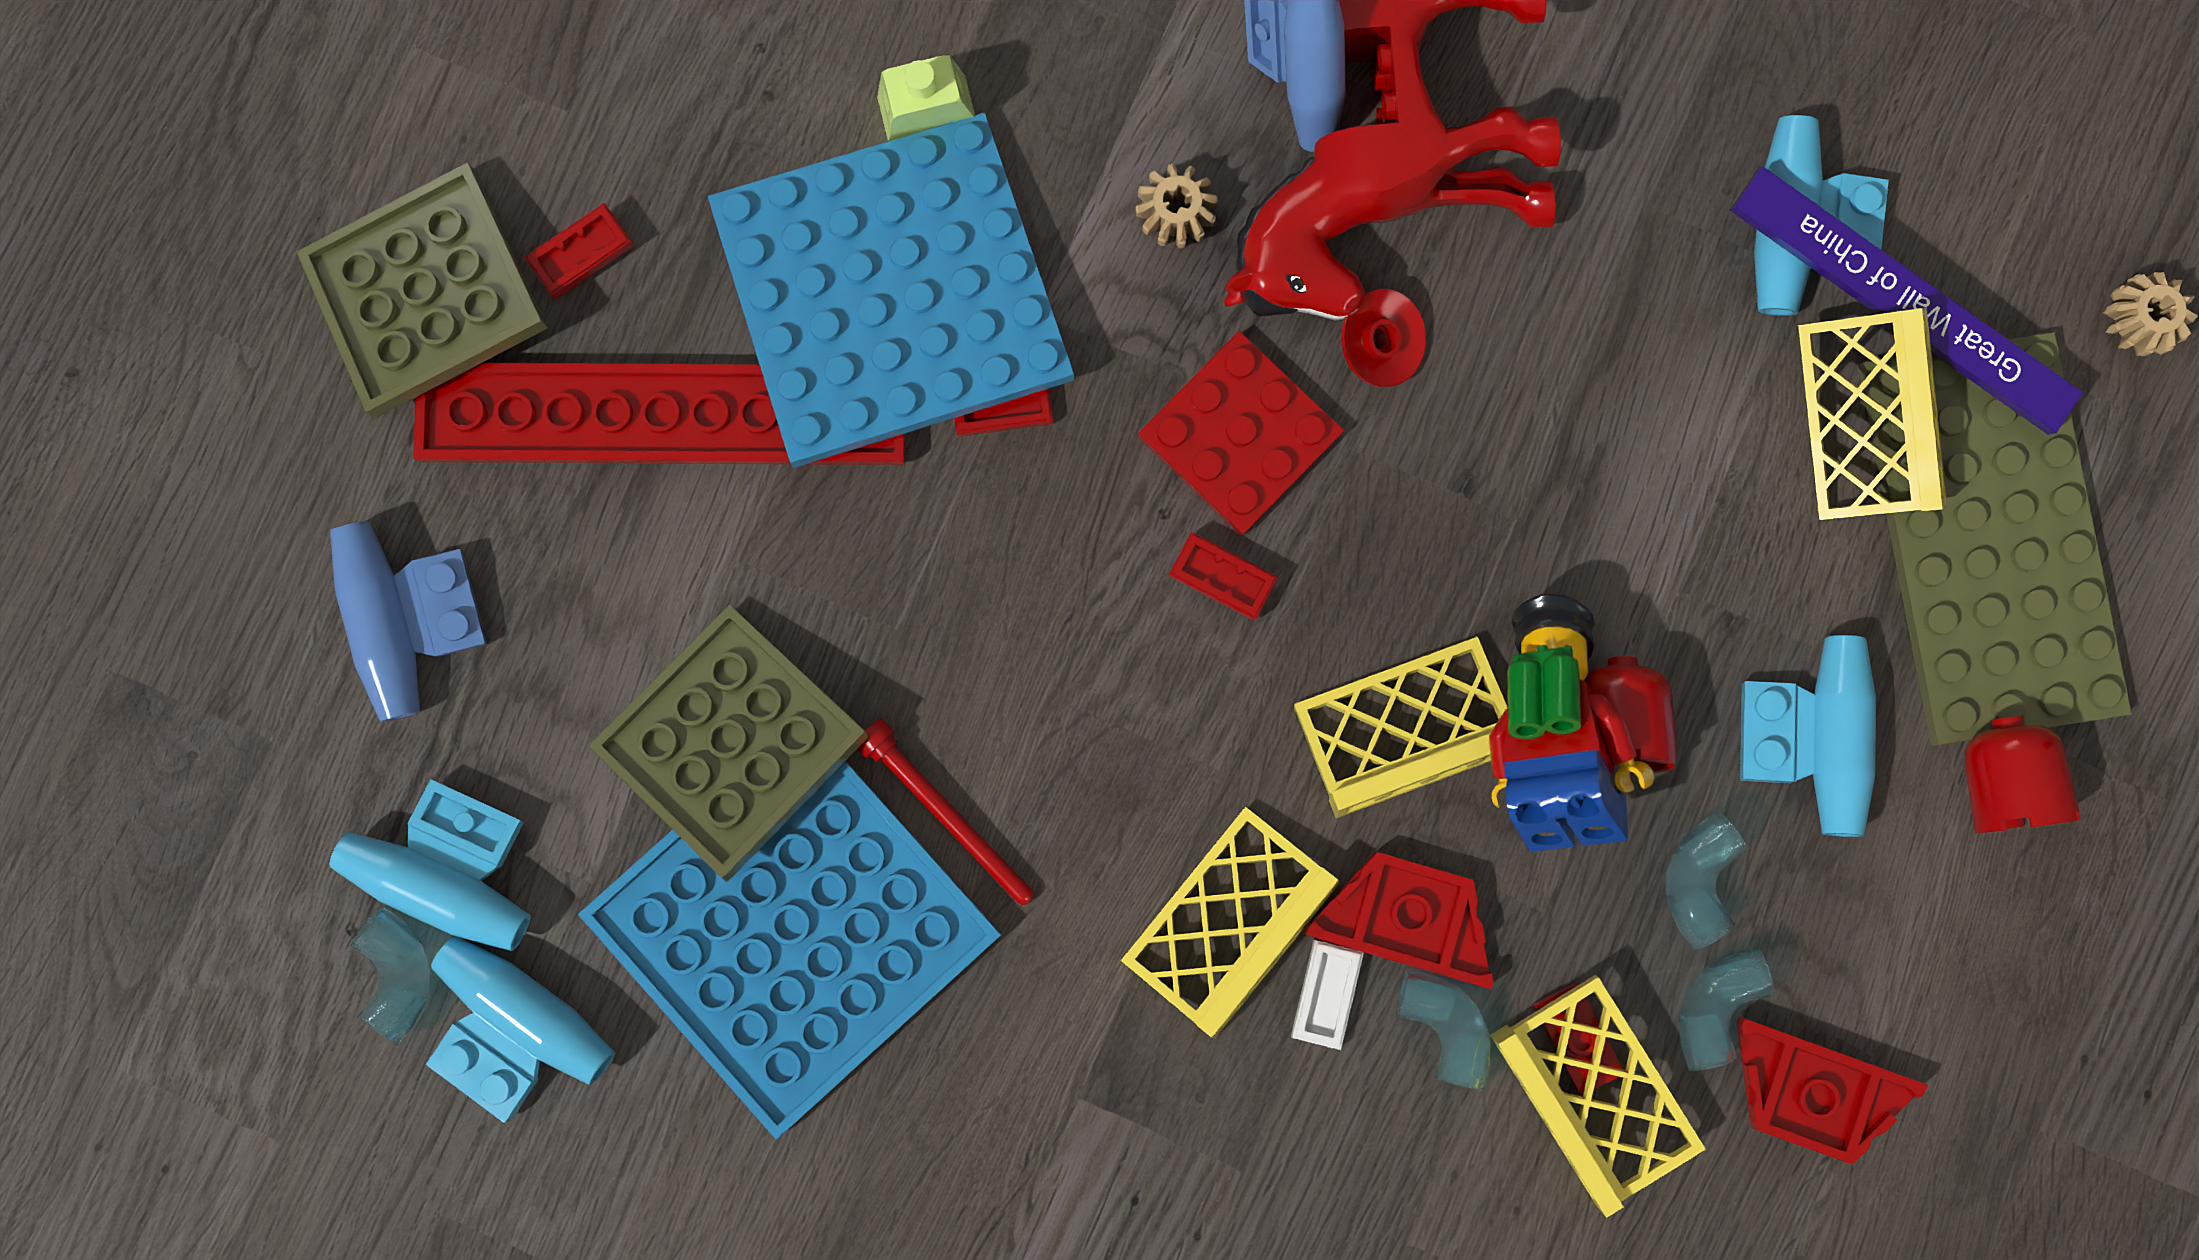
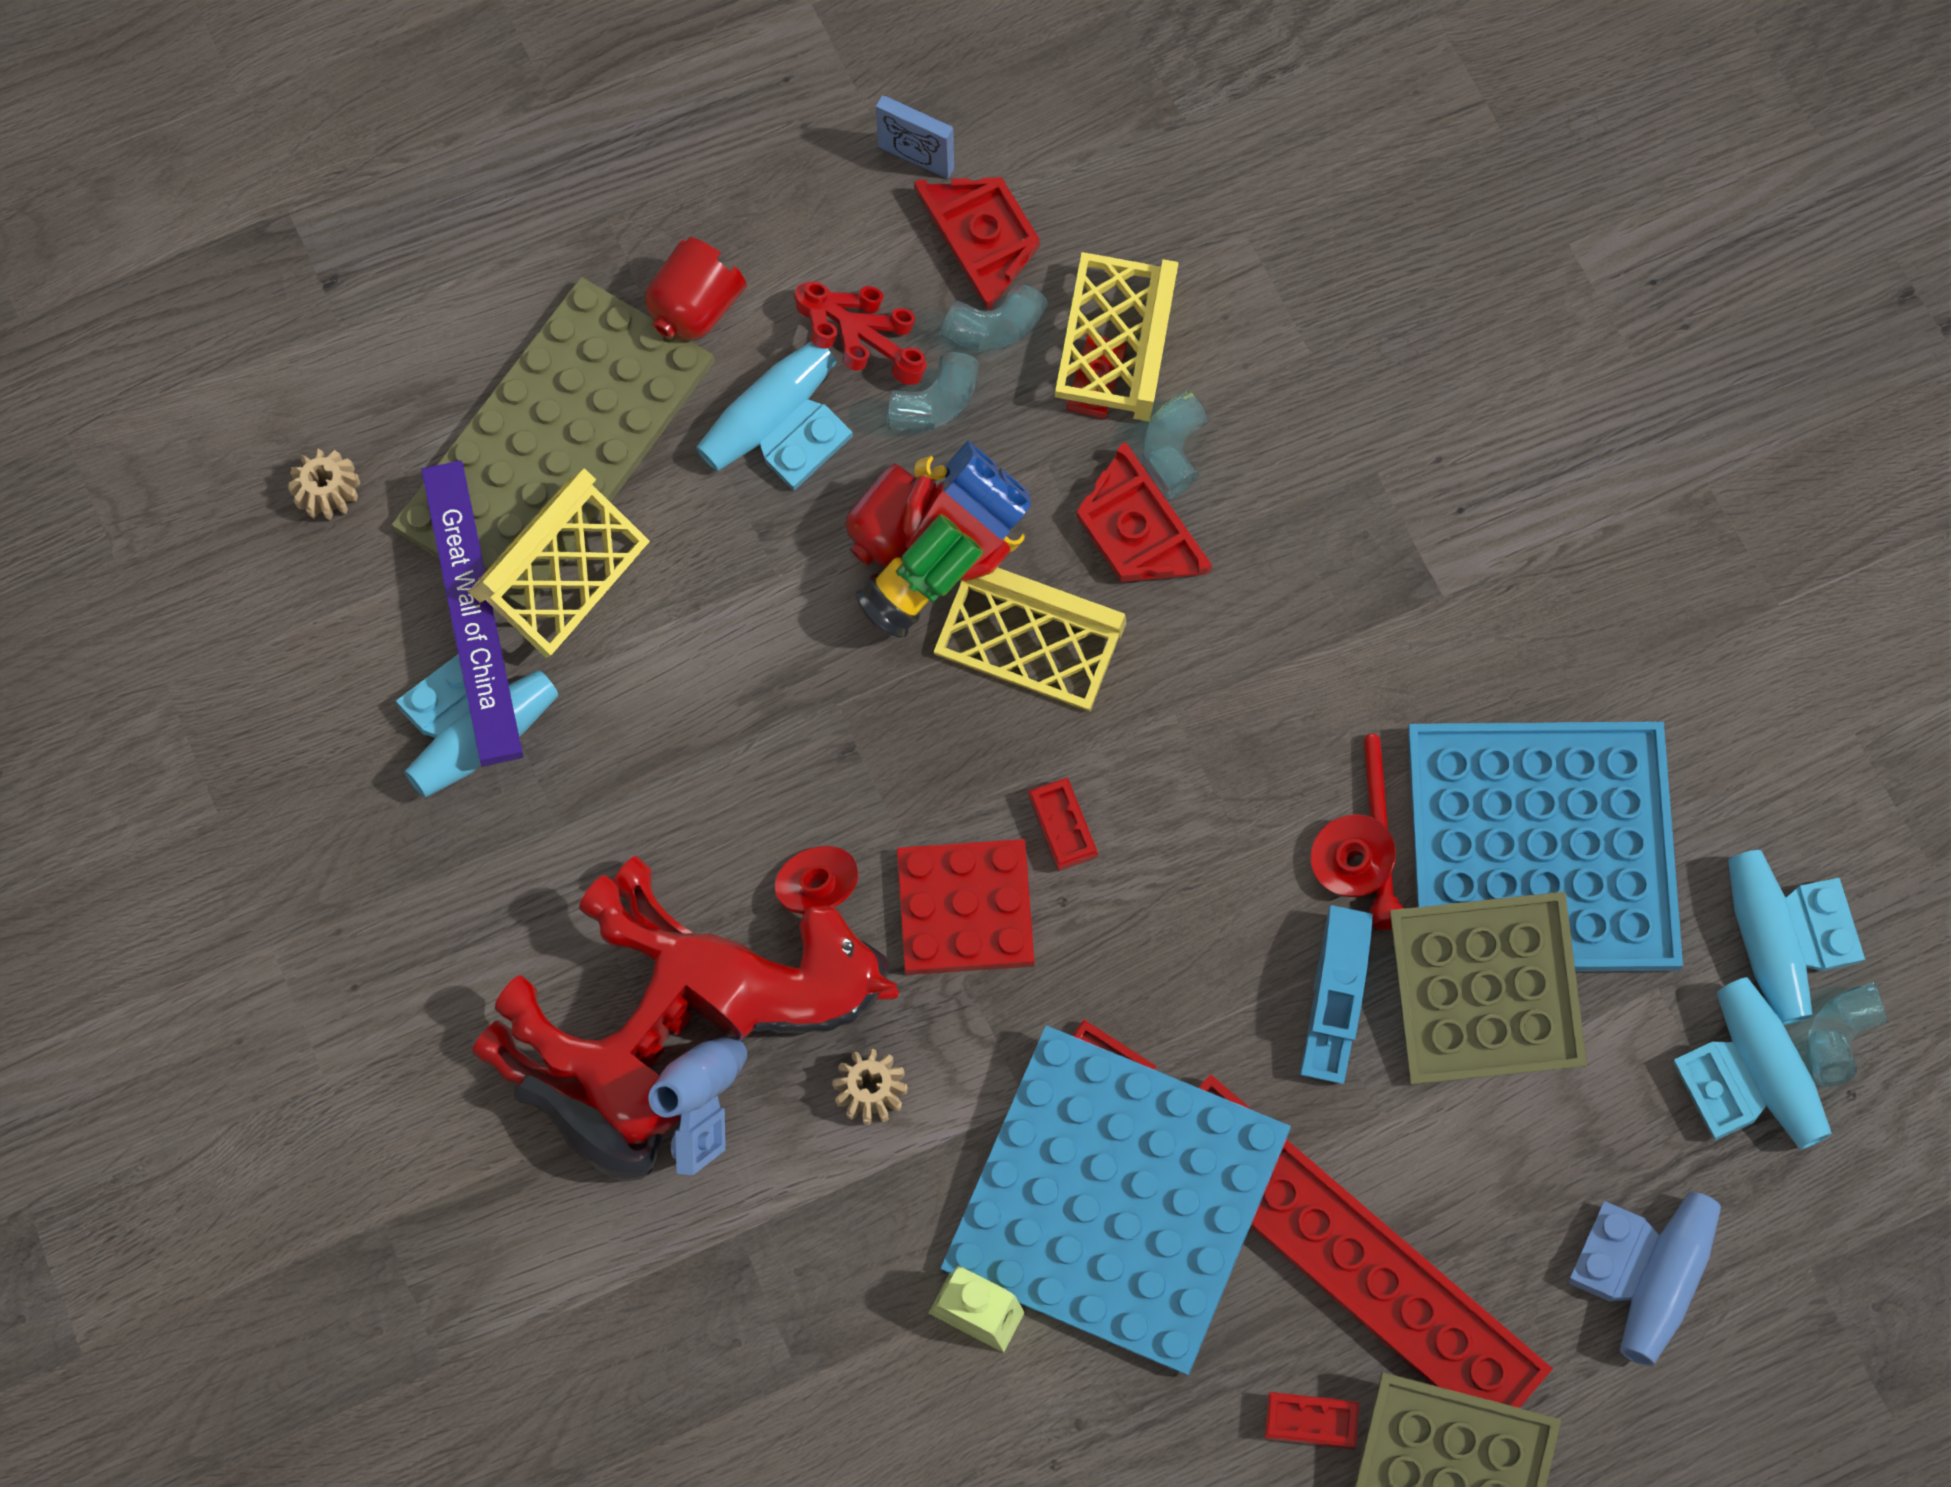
camera: 135 degrees left, 15 degrees down
(855, 627) = (1337, 994): none -> dark azure slope
(960, 746) = (1343, 840): none -> red dish
(1265, 948) = (1245, 578): light yellow fence -> none
(1327, 994) = (1231, 524): white tile -> none
(1837, 887) = (818, 303): none -> red plant
(1972, 1129) = (915, 136): none -> medium blue tile

